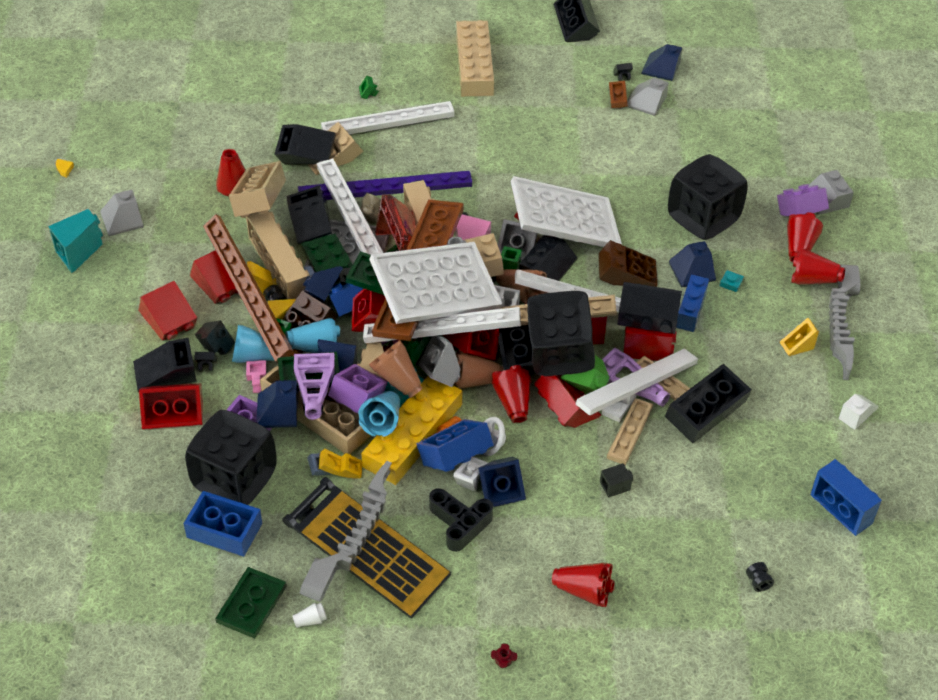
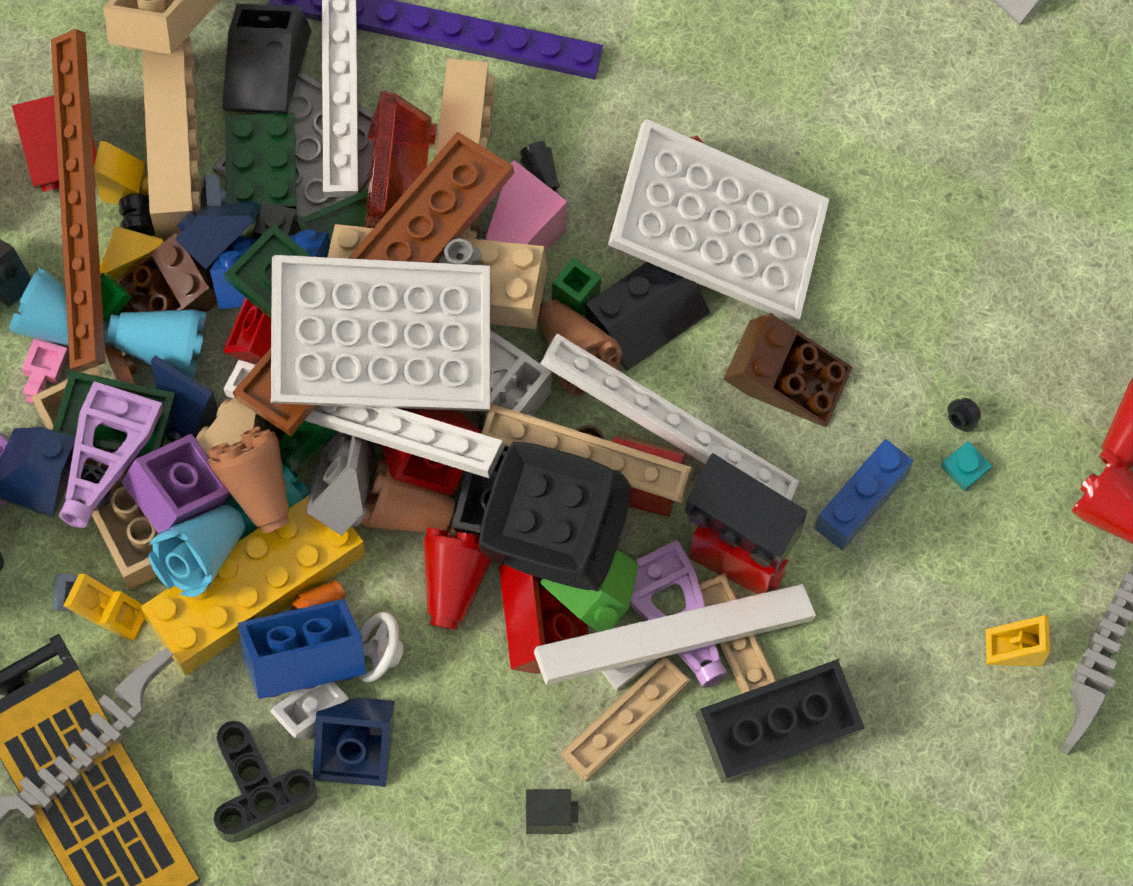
camera: 20 degrees right, 20 degrees up
(370, 207) = (388, 70): dark tan hair -> none
(514, 237) = (592, 241): light grey slope -> none
(693, 260) = (910, 409): dark blue slope -> none
(707, 196) = (1001, 276): black piece -> none
(722, 258) = (964, 414): none -> black plate
(857, 410) = (1047, 827): white slope -> none

